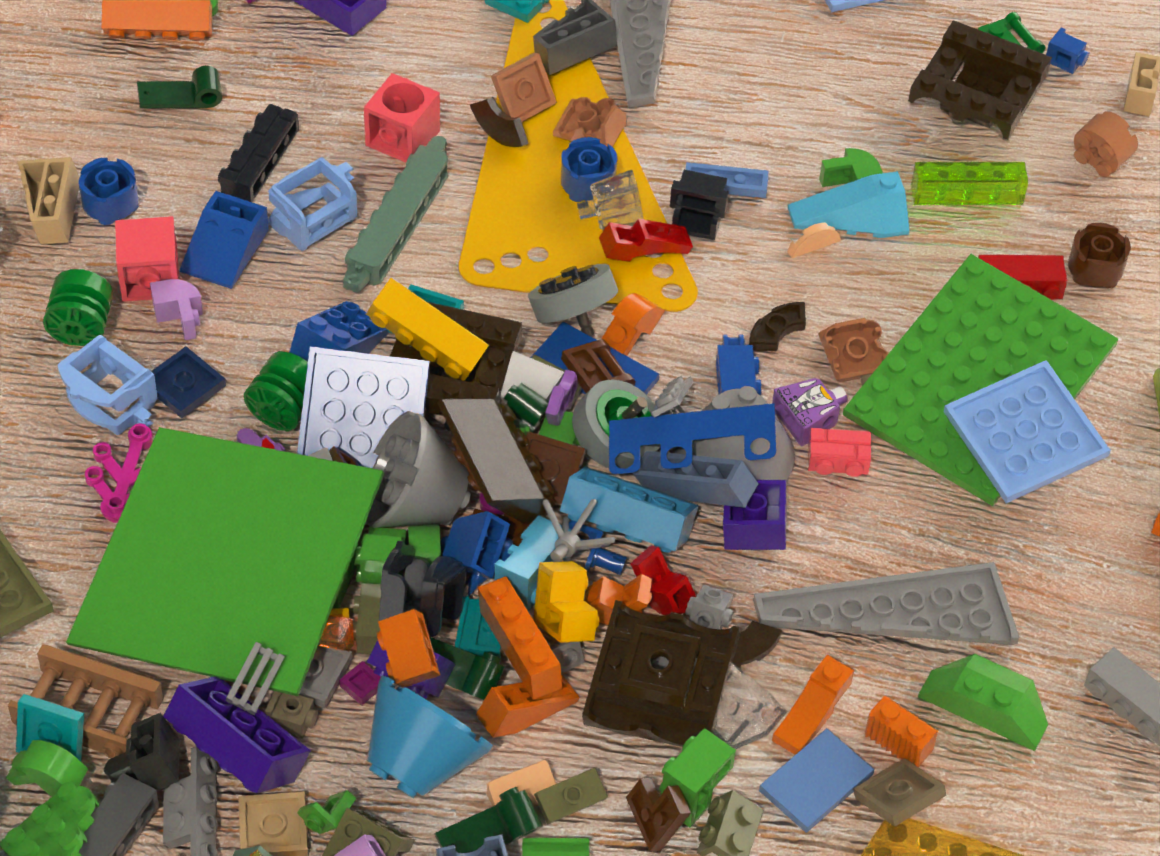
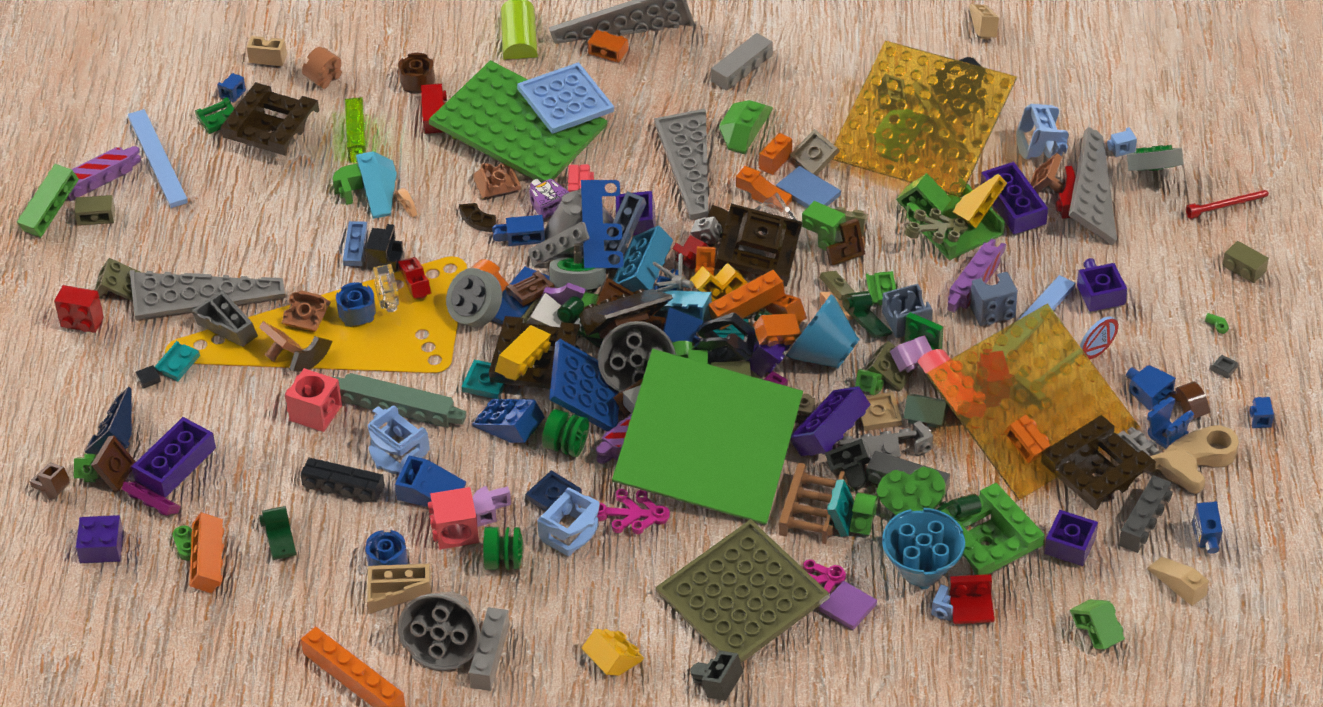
camera: 90 degrees left, 5 degrees down
(267, 655) = (798, 407): light grey tile -> none

